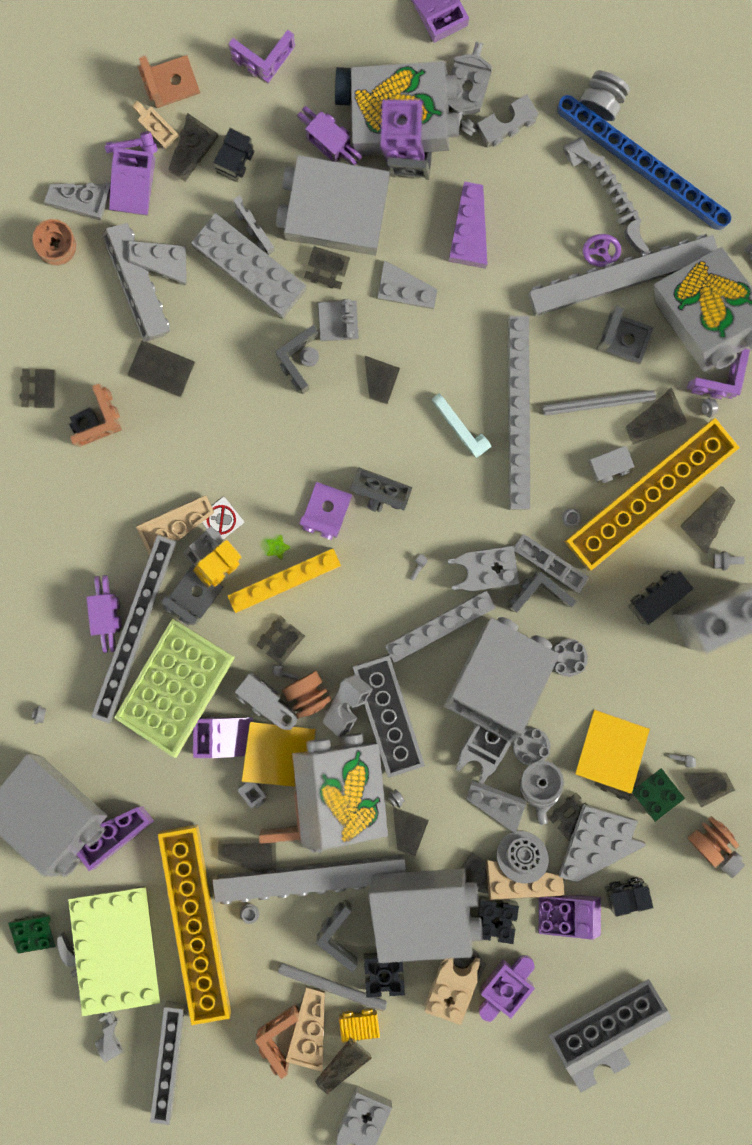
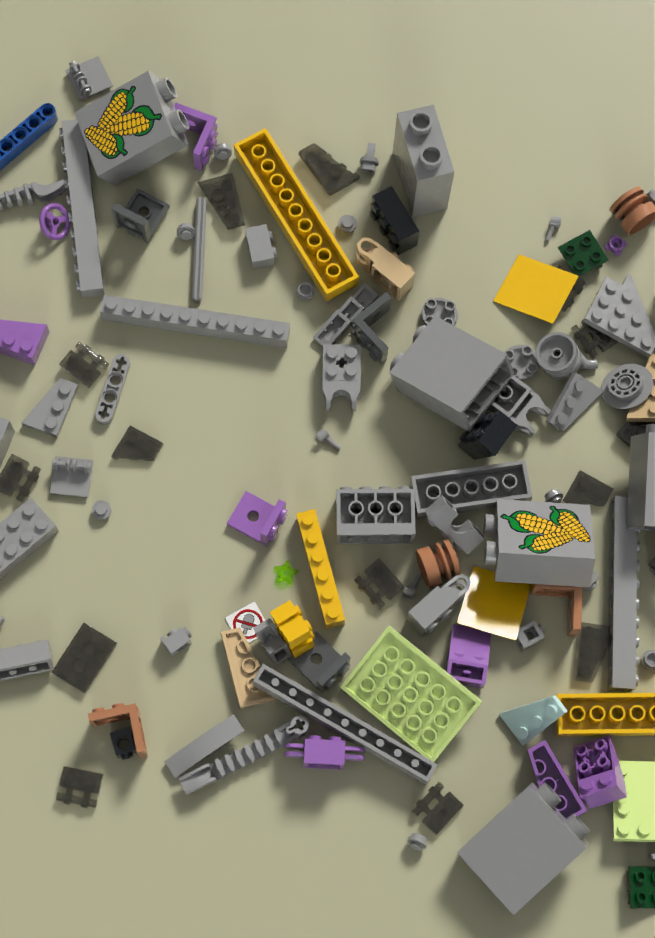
camera: 90 degrees left, 15 degrees down
(69, 508) = (239, 759): none -> light grey piece
(72, 734) = (442, 812): none -> clear smoke plate
(94, 499) = (204, 746): none -> light grey slope
(129, 877) = (599, 772): none -> medium lavender slope
(169, 808) = (533, 718): none -> light aqua wing
(191, 454) = (177, 640): none -> light grey brick
(291, 348) = (108, 527): dark grey bracket -> none
(332, 631) = (375, 528): none -> light grey brick
(380, 490) = (247, 460): dark grey plate -> none
(435, 340) = (112, 389): none -> light grey beam
(440, 626) = (389, 427): light grey brick -> none
(441, 726) = (487, 435): none -> black brick
(450, 307) = (81, 369): none -> clear smoke plate
(477, 445) = (218, 368): light aqua beam -> none
(606, 596) = (386, 269): none -> tan brick
(614, 385) = (185, 231): none -> light grey plate
(652, 549) = (347, 223): none -> light grey plate
(675, 831) = (615, 240): none -> medium lavender plate
(709, 786) = (581, 209): clear smoke wing -> none

